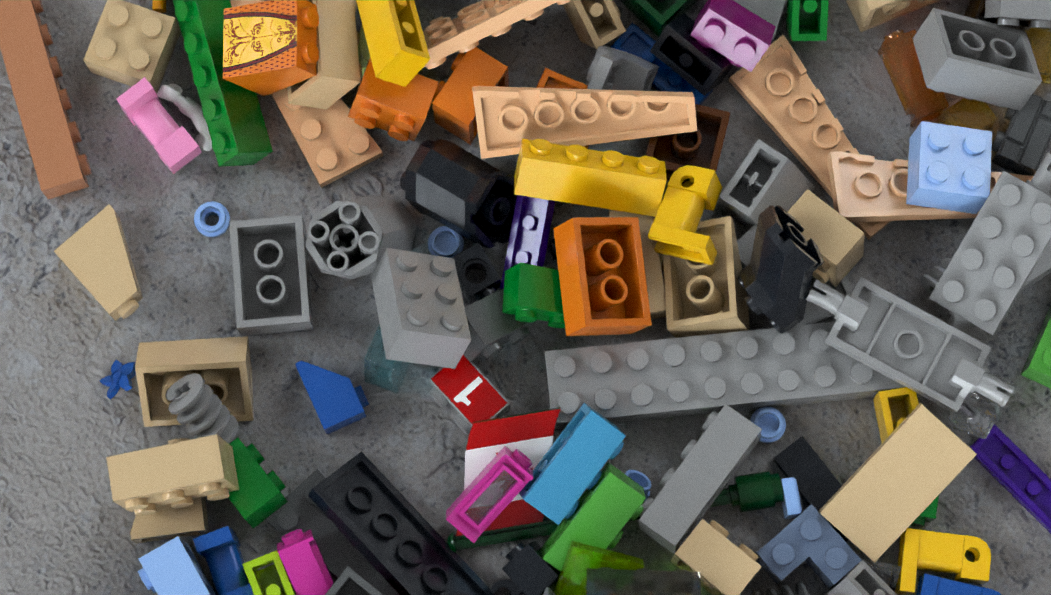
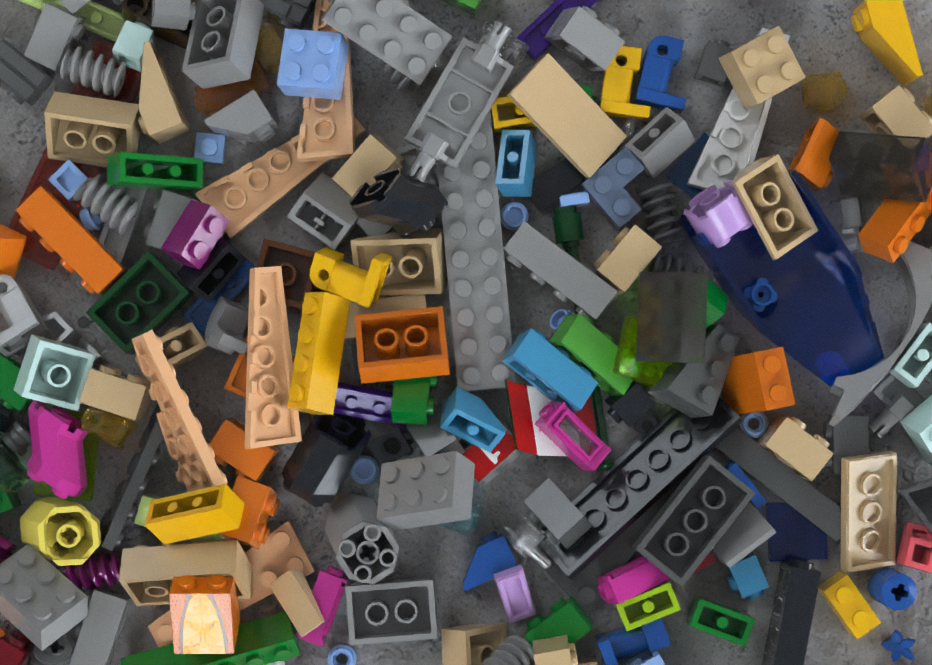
camera: 90 degrees left, 10 degrees up
(275, 192) = (328, 594): none -> dark pink window
(284, 160) = (298, 601): none -> tan slope
(290, 427) = (515, 594): none -> lavender tile
(356, 437) = (525, 538): none -> clear piece
(390, 478) = (557, 513): none -> brick
(508, 365) = (471, 420): none -> dark azure slope
(834, 422) = (516, 163): none -> dark azure brick
(840, 54) = (210, 147): none -> light blue plate
(878, 90) = (244, 120): none -> light grey slope
(998, 505) = (585, 38): none -> light grey brick

